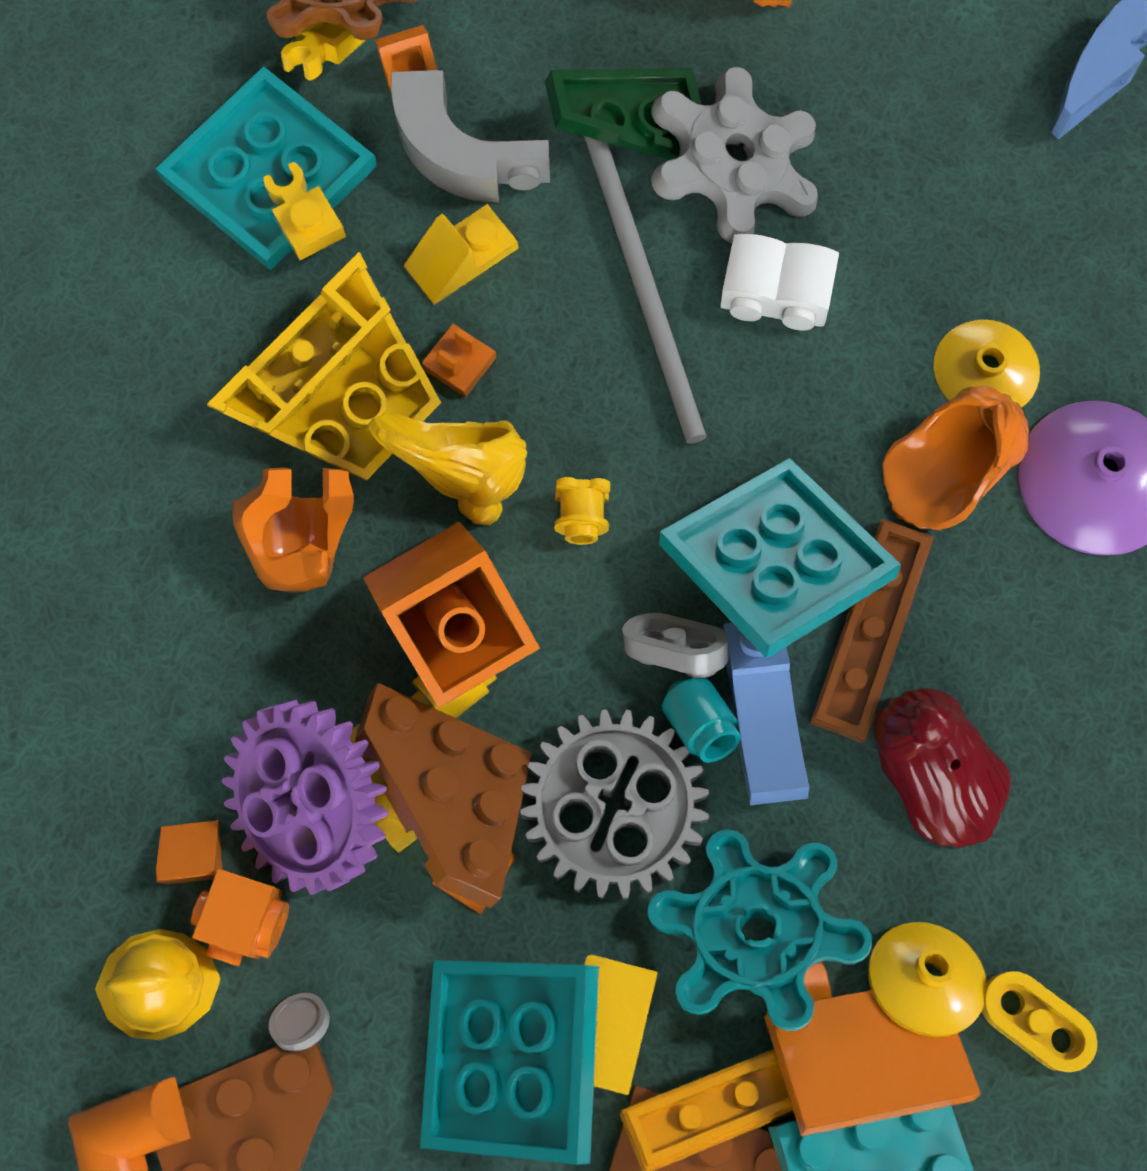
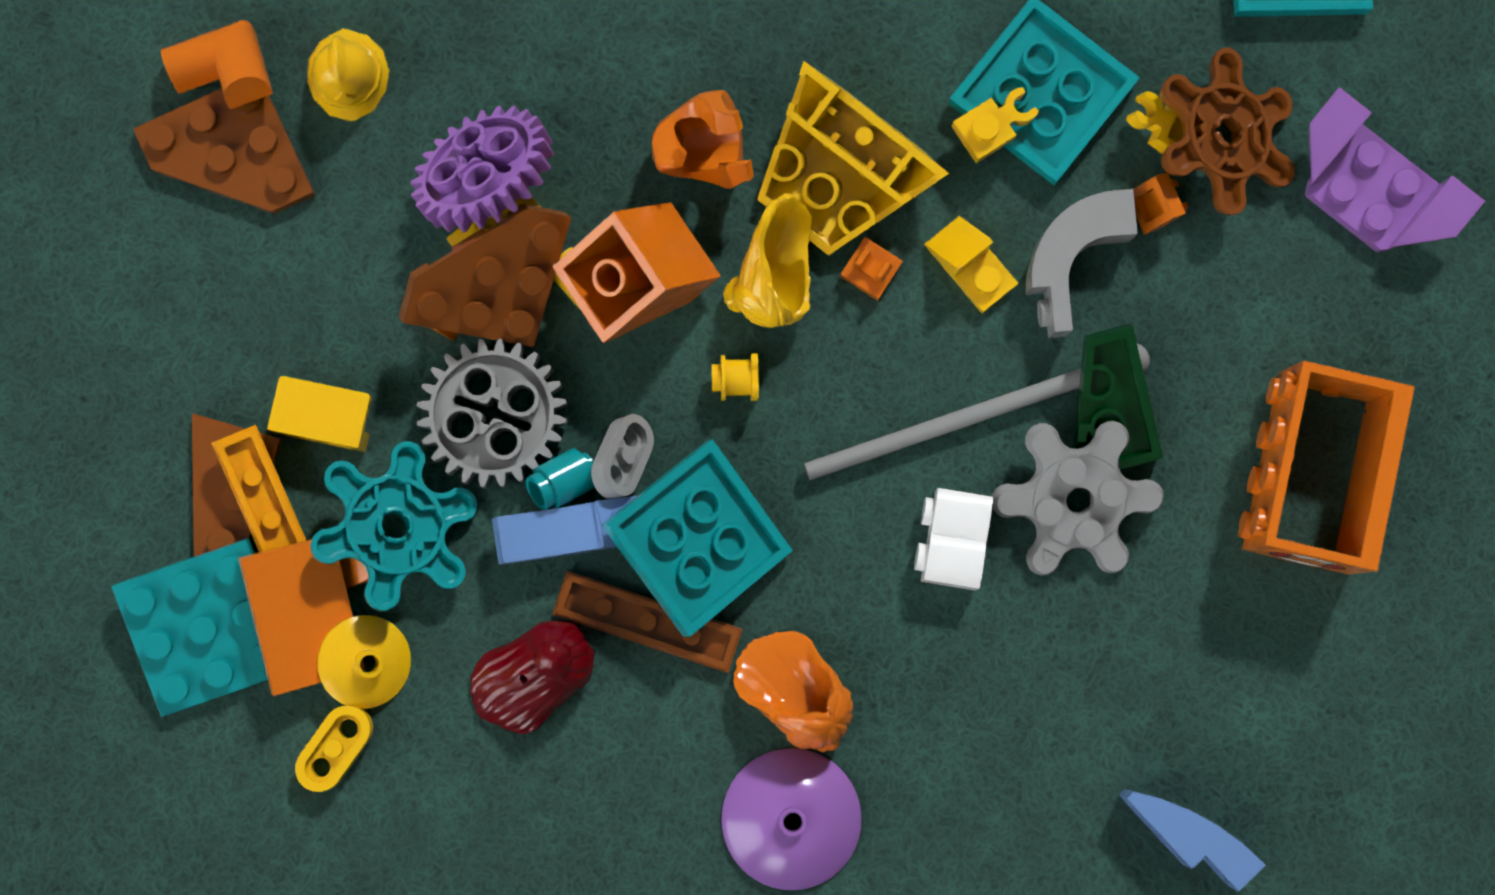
camera: 80 degrees right, 10 degrees up
(189, 853) = (445, 87): orange slope -> none
(239, 918) = (395, 130): orange brick -> none
(299, 1022) = (320, 182): light grey piece -> none
(511, 1060) = (291, 340): teal plate -> none
(960, 362) = (915, 728): yellow dish -> none

